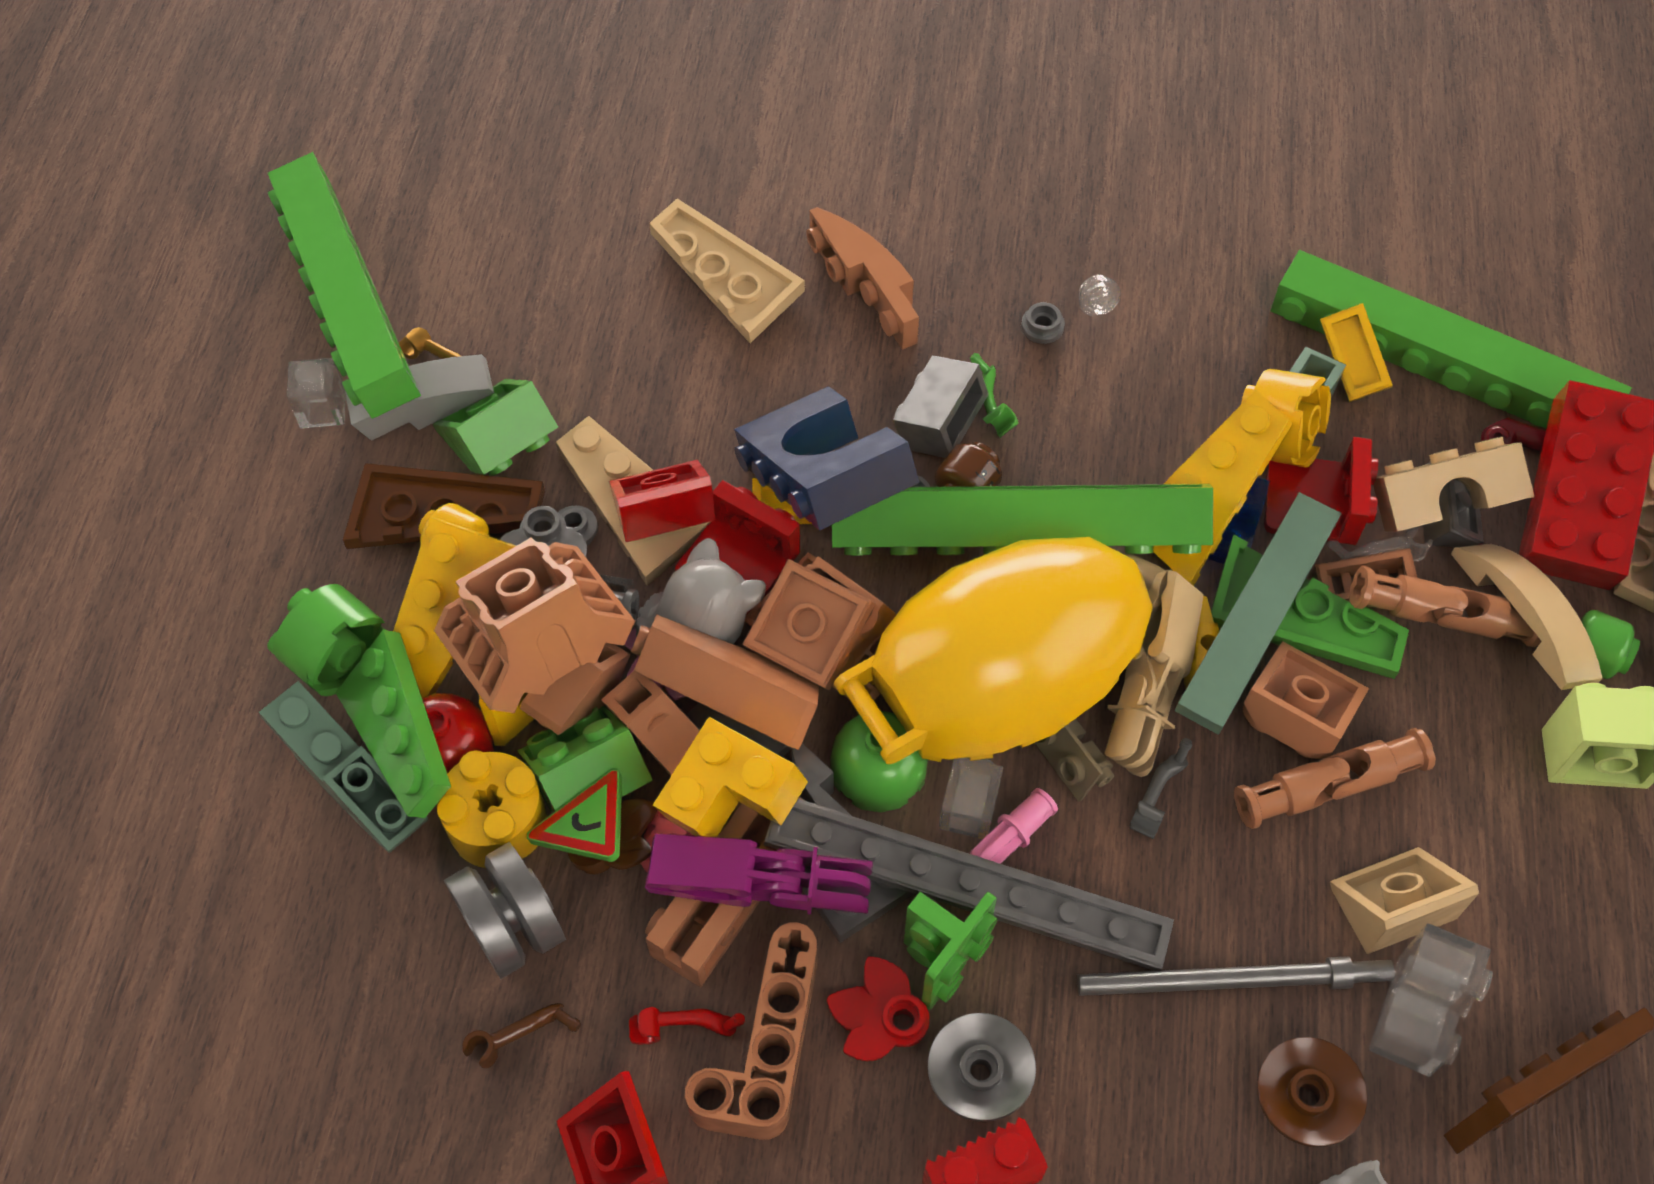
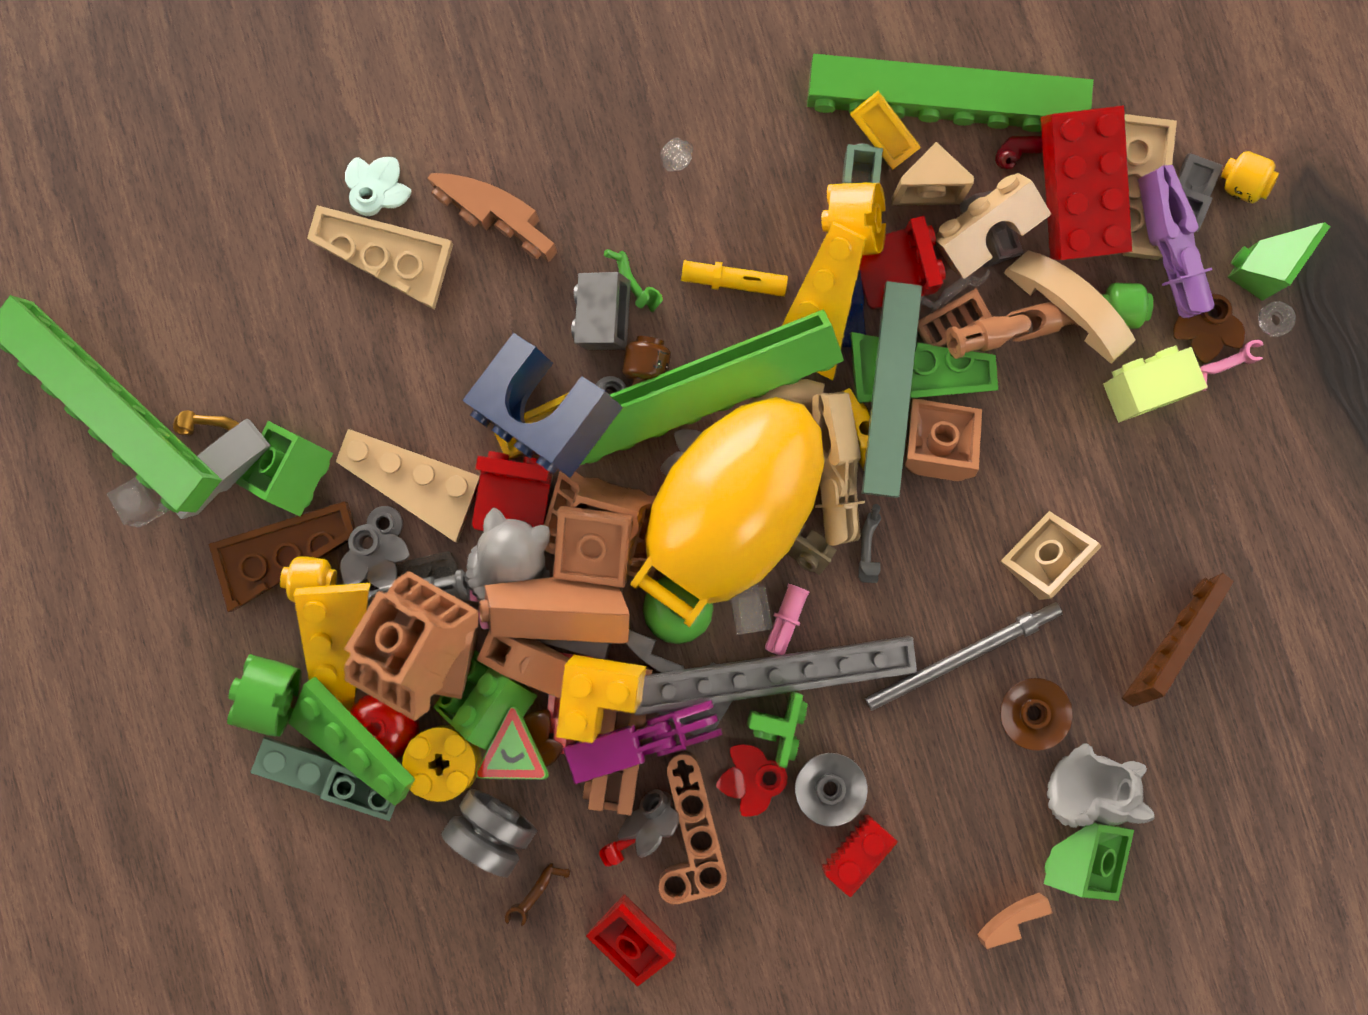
camera: 20 degrees left, 25 degrees up
(663, 500) = (437, 481): red slope -> none
(731, 991) = (650, 822): none -> flat silver plate
(749, 209) = (377, 180): none -> light aqua plate
(1043, 314) = (644, 187): flat silver plate -> none
(1096, 428) = (733, 278): none -> yellow pin
(1329, 779) = (963, 504): nougat piece -> none
(1397, 413) = (934, 180): none -> tan slope
(1430, 991) = (1088, 626): clear brick -> none

